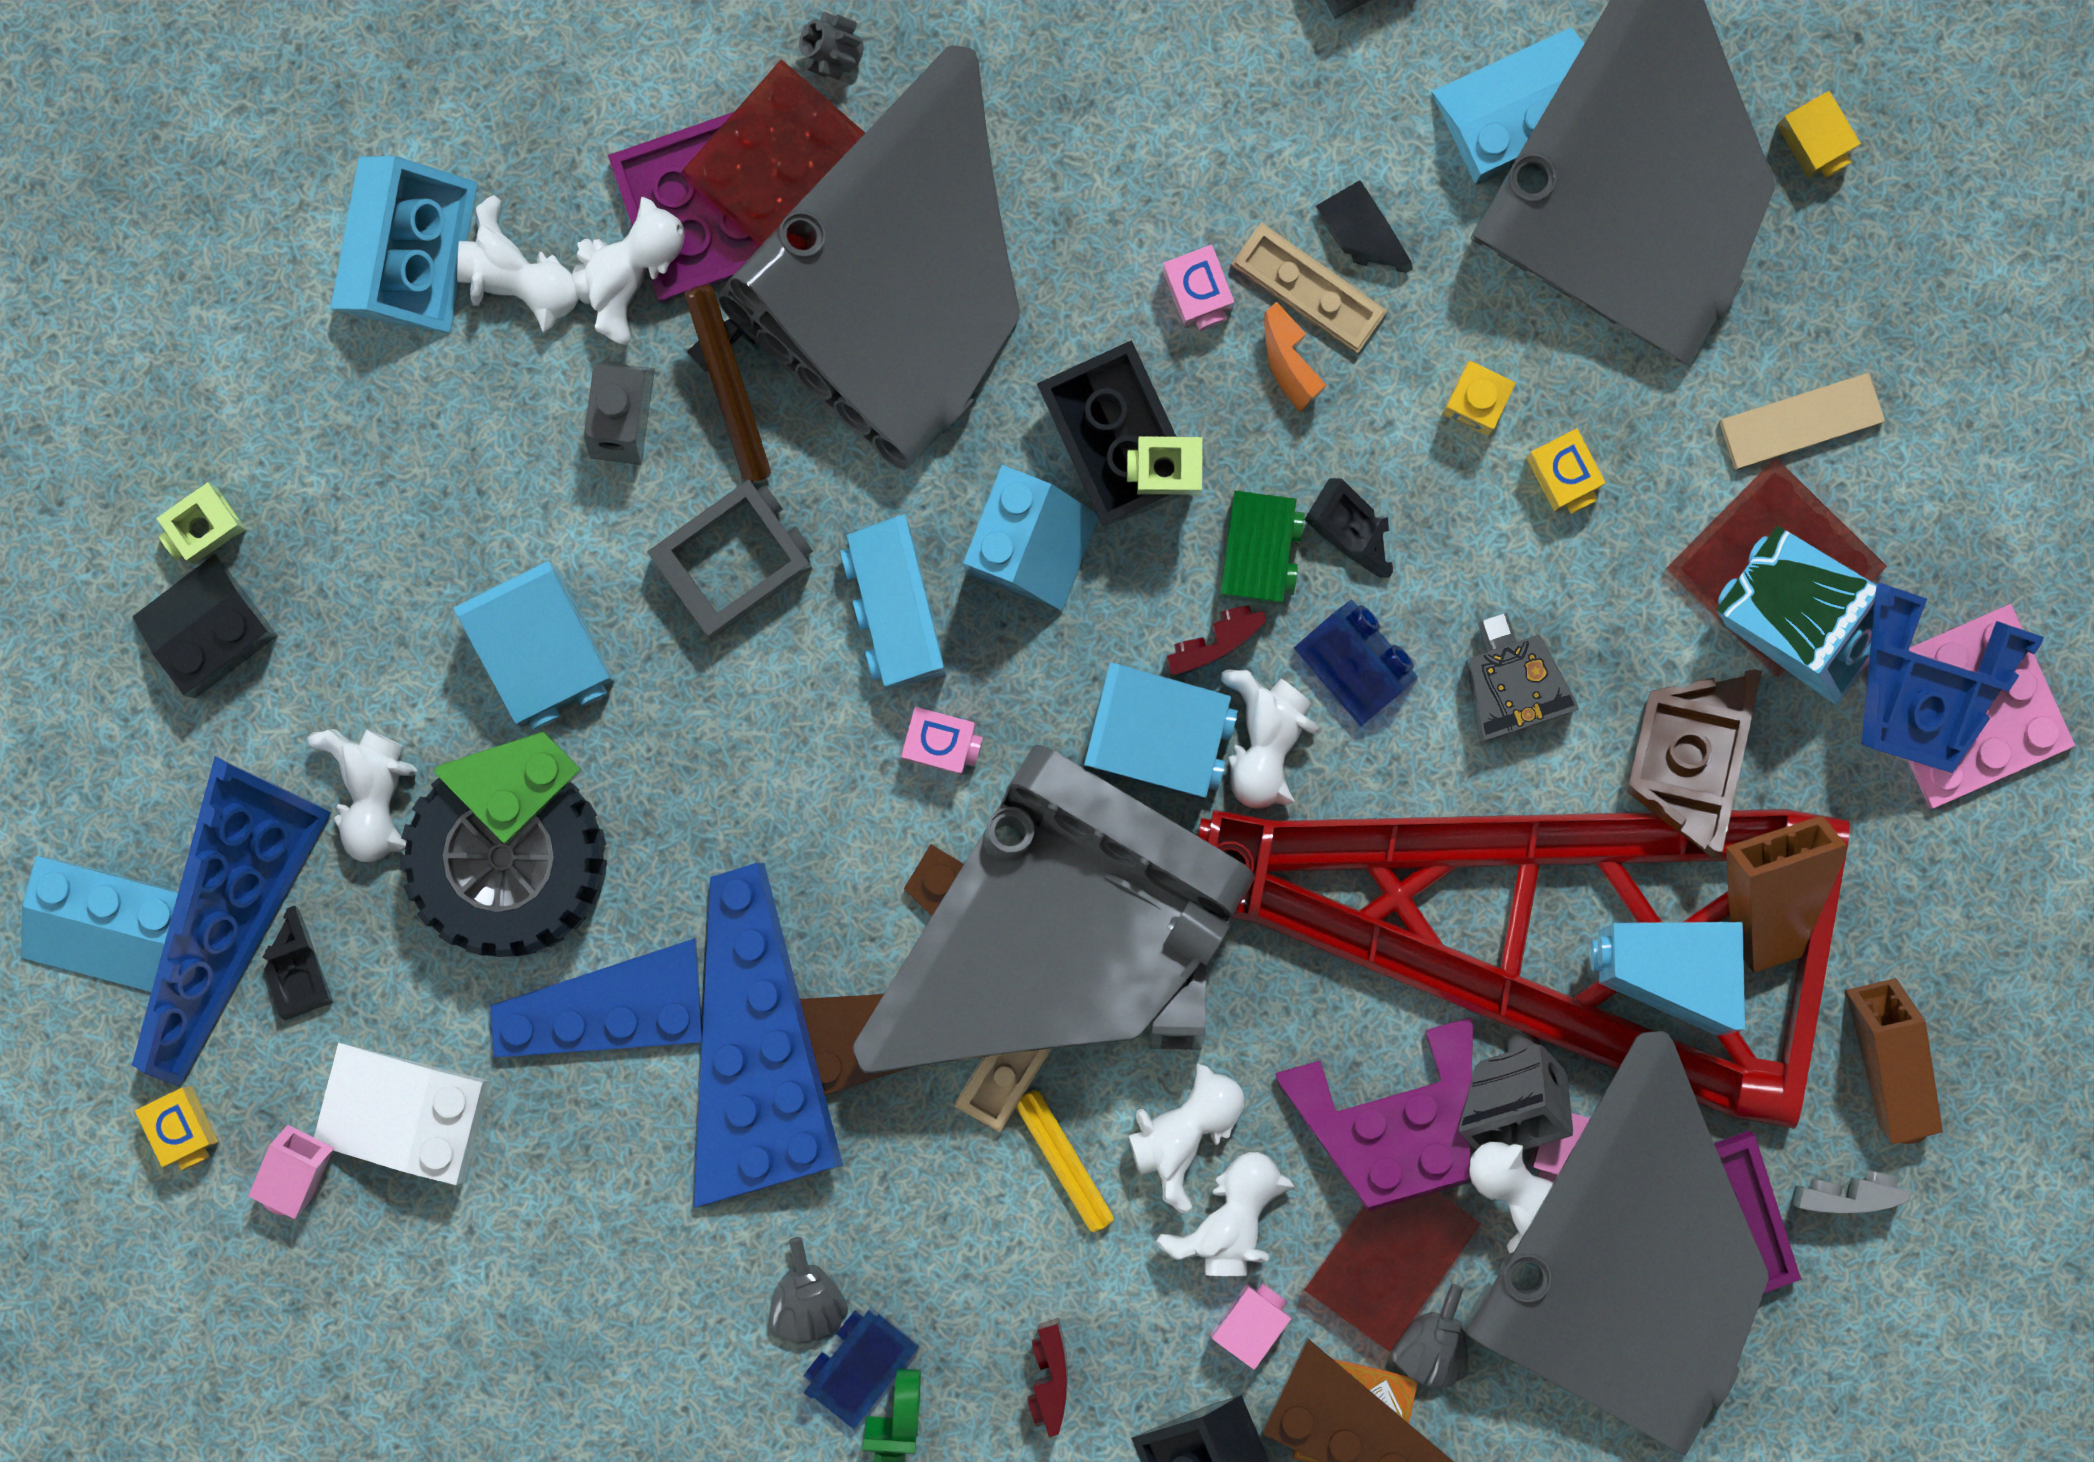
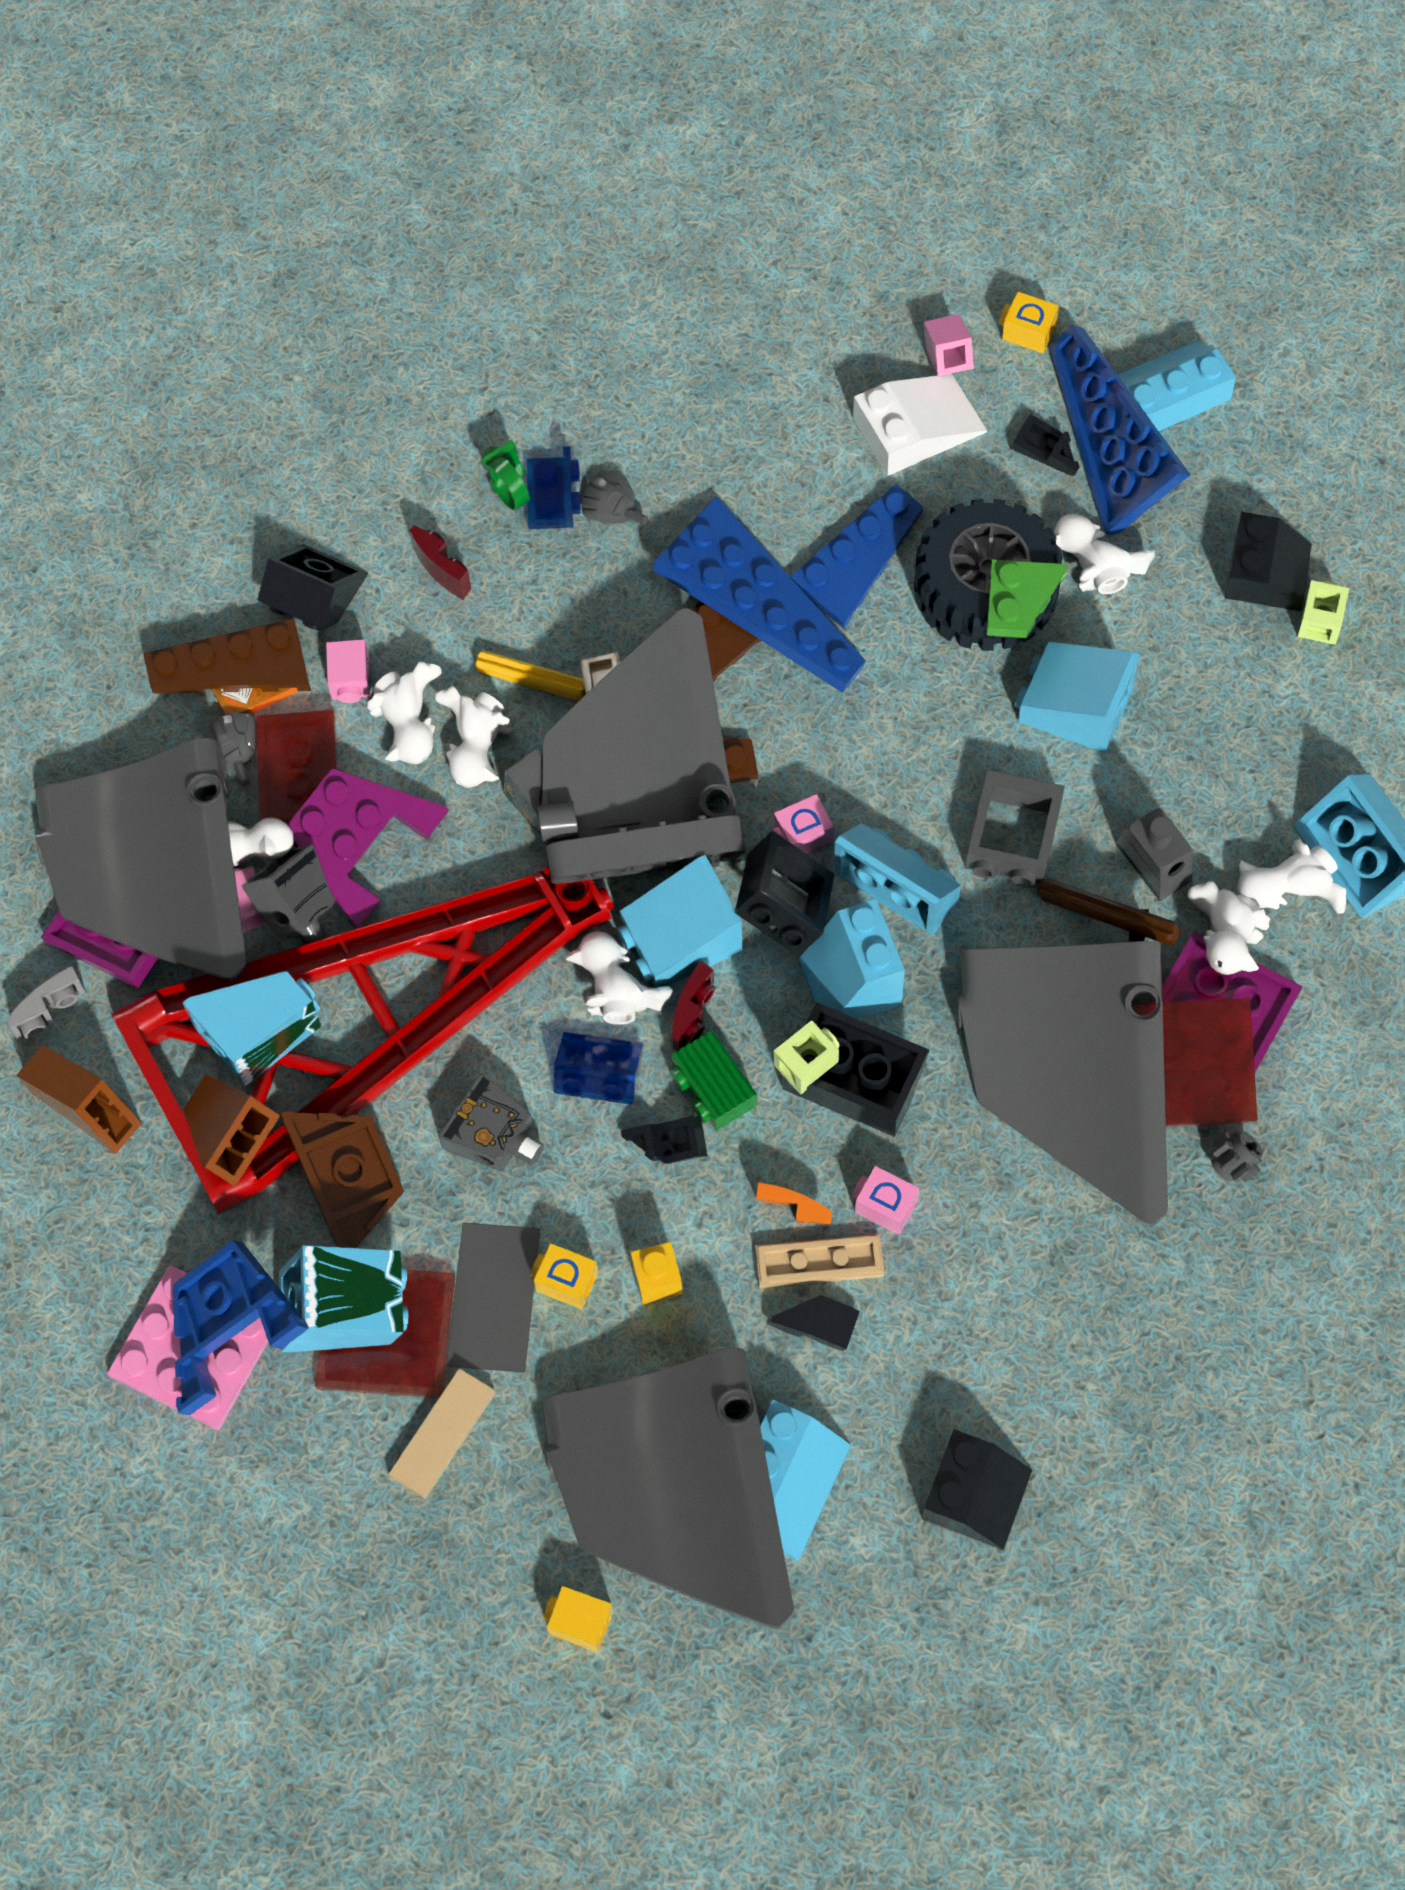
camera: 140 degrees right, 20 degrees down
(1033, 666) = (785, 893): none -> black window
(1645, 517) = (493, 1297): none -> dark grey window

